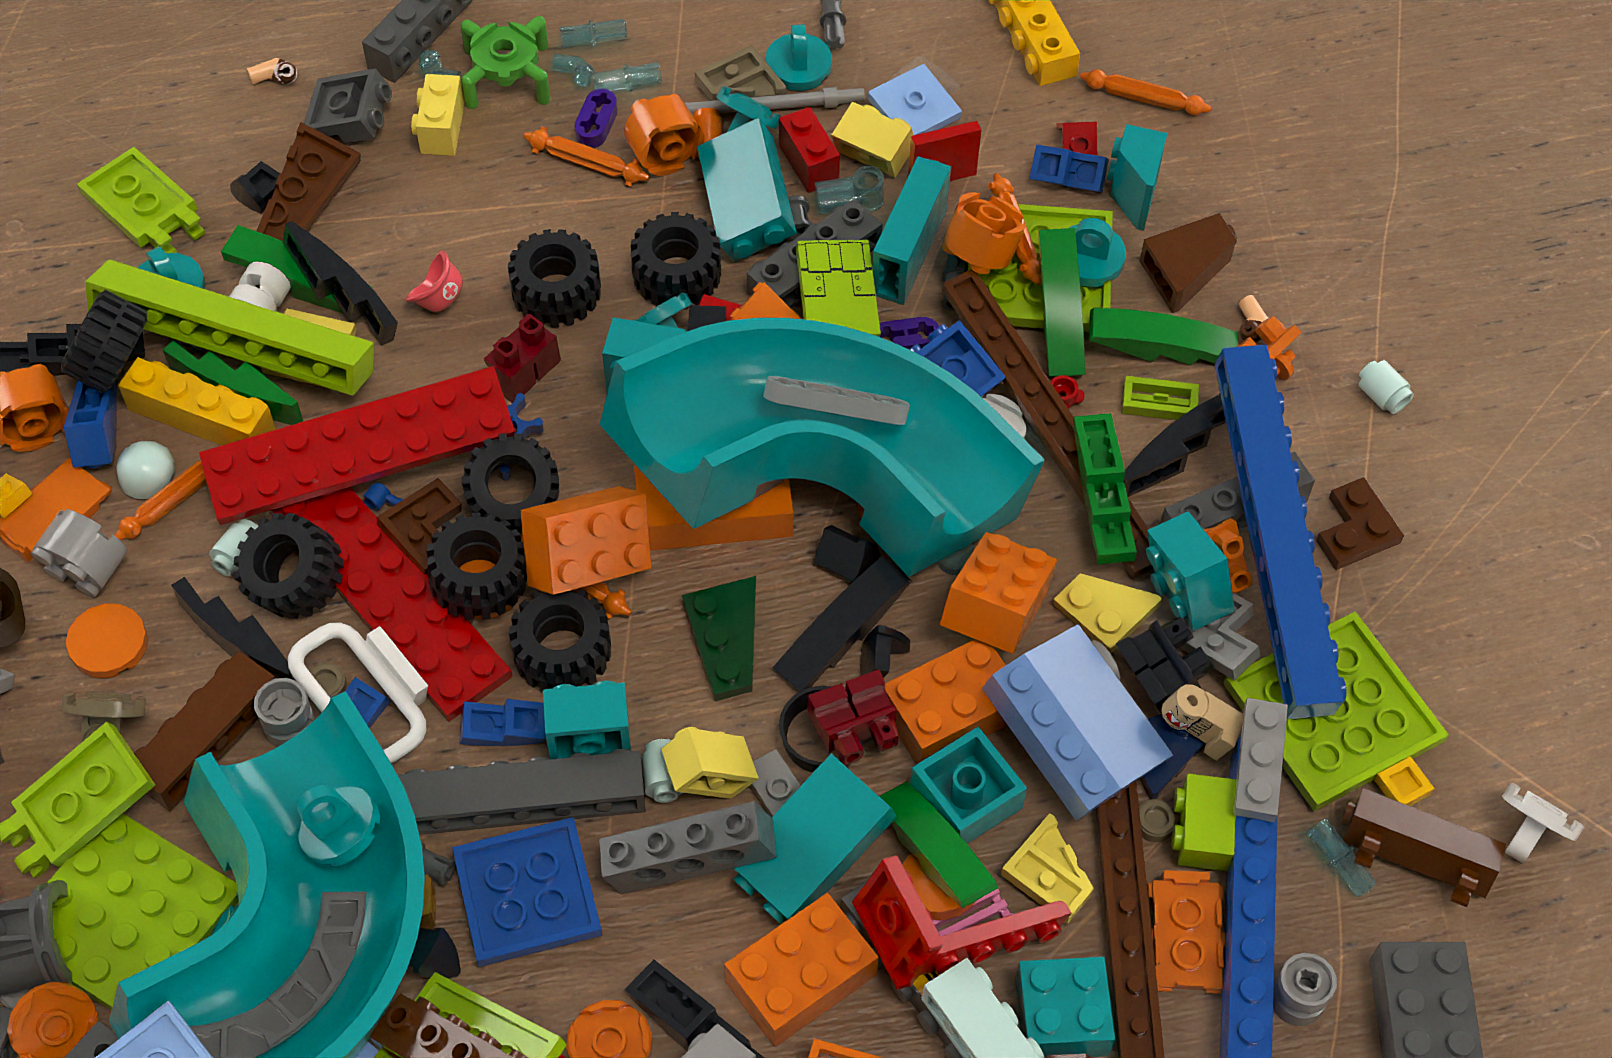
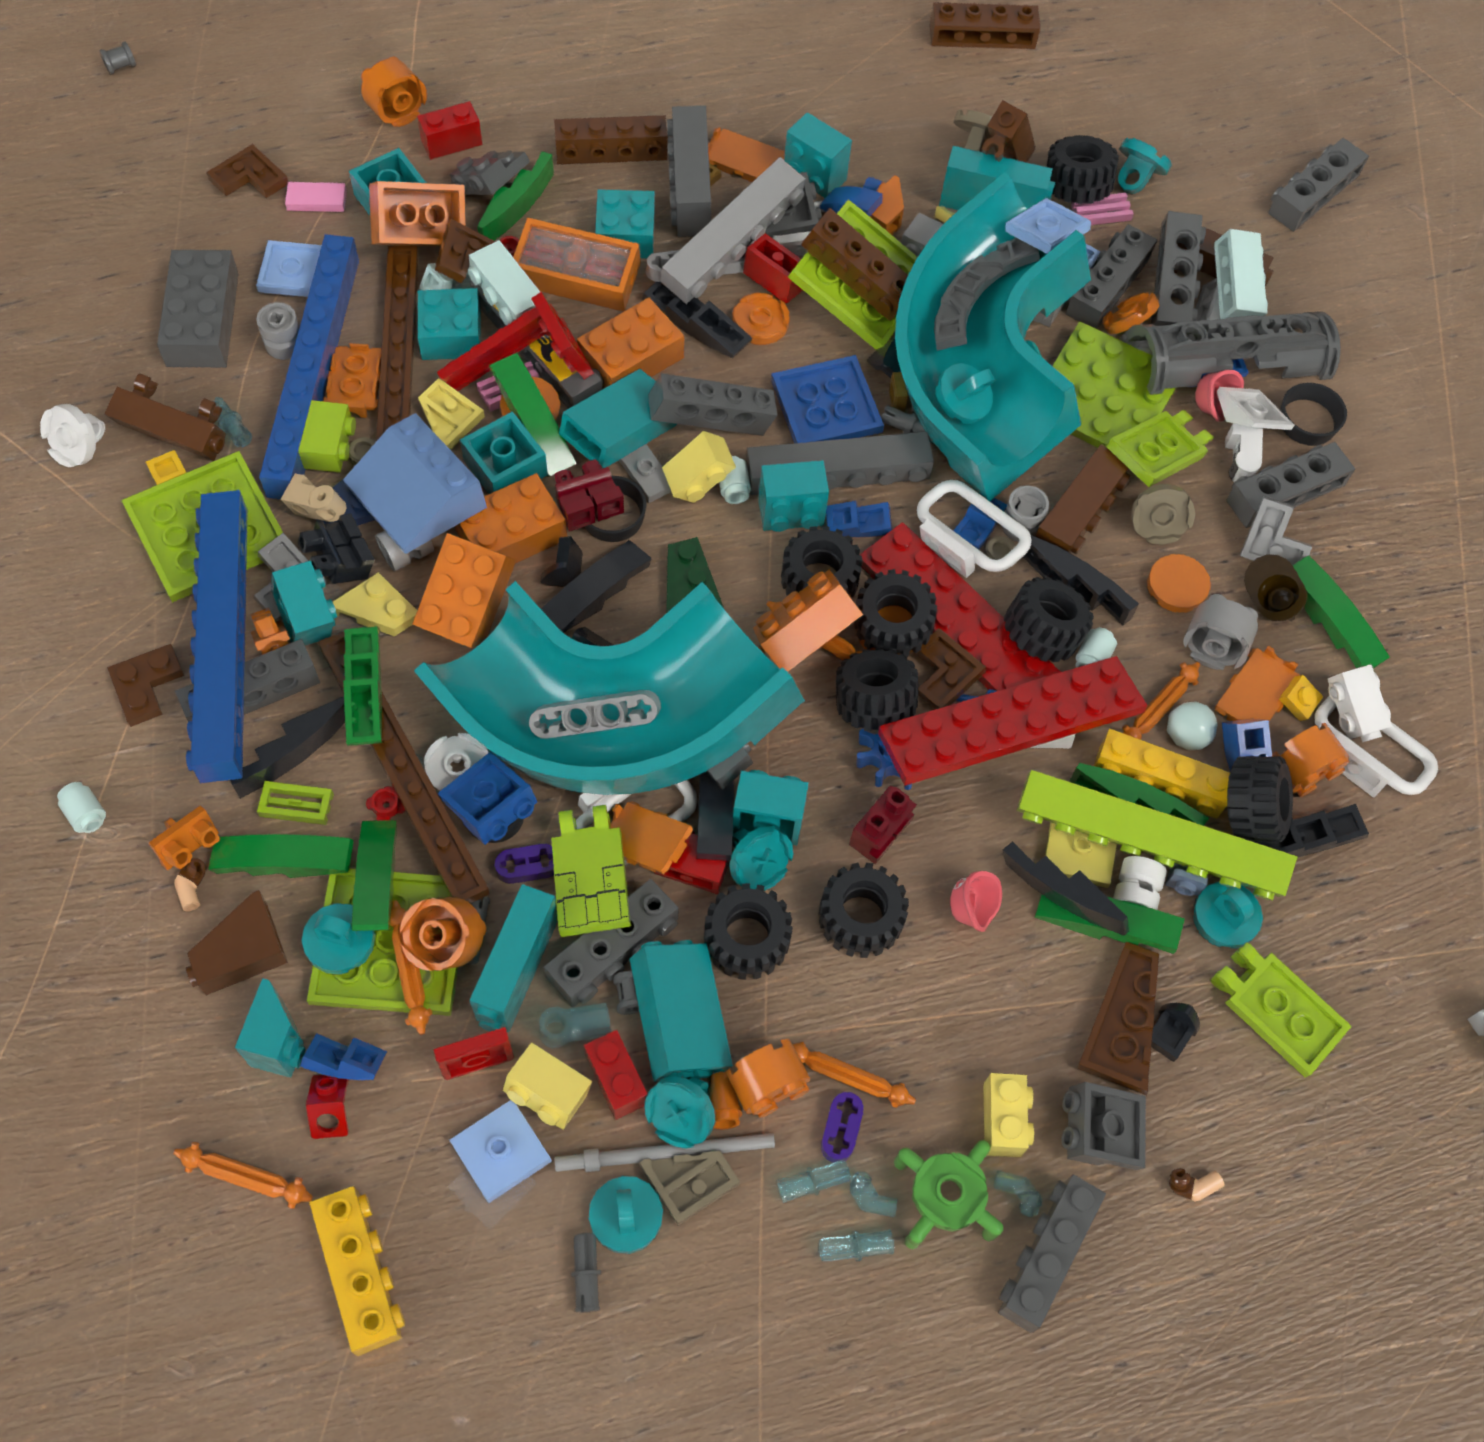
camera: 175 degrees right, 5 degrees up
(1260, 760) = (277, 453): light grey plate -> none

